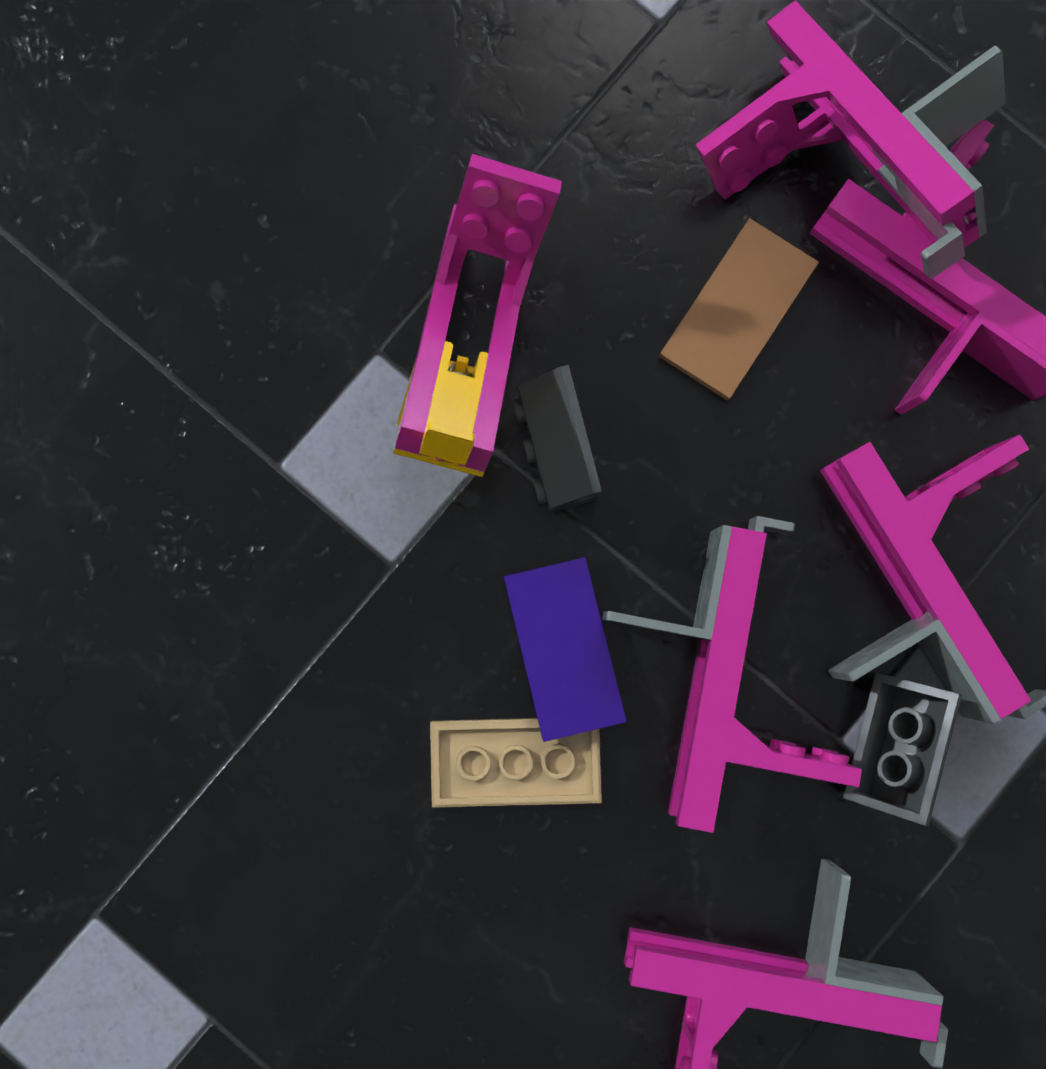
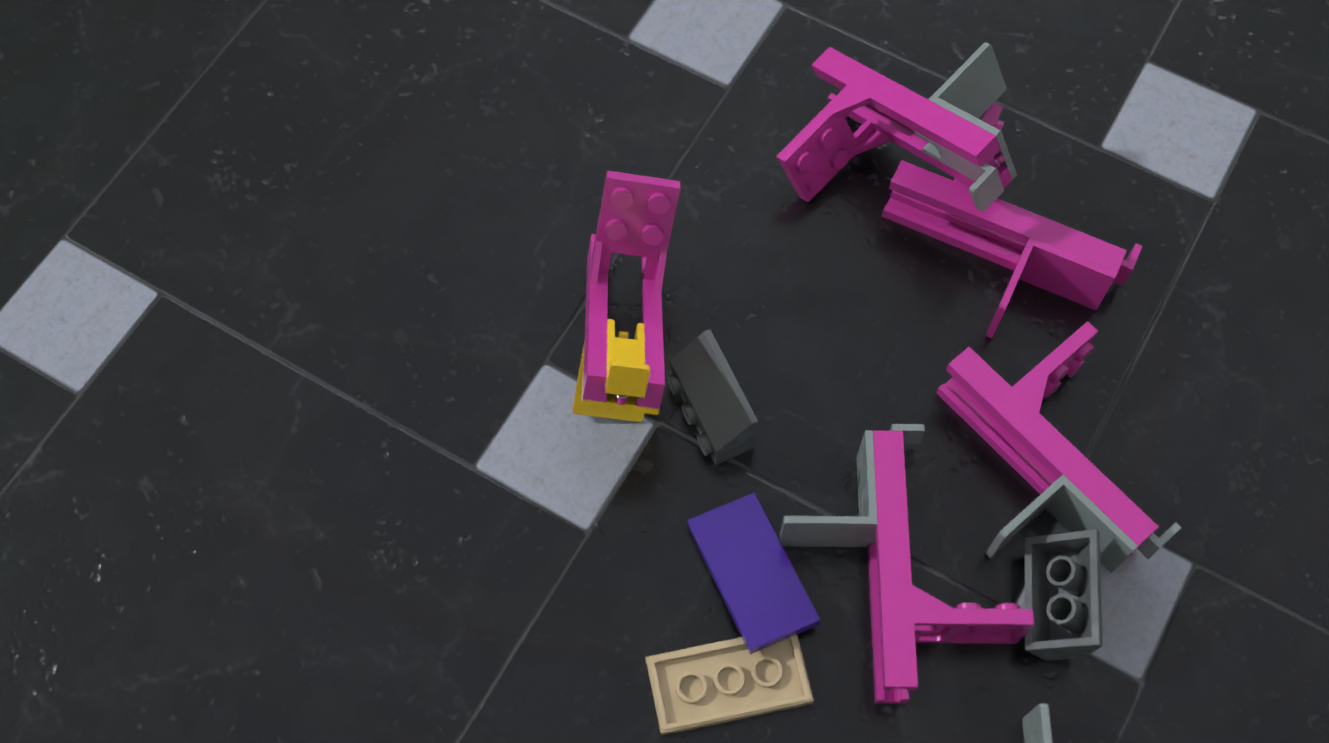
camera: 15 degrees left, 20 degrees down
(738, 309) = (838, 280): medium nougat tile -> none

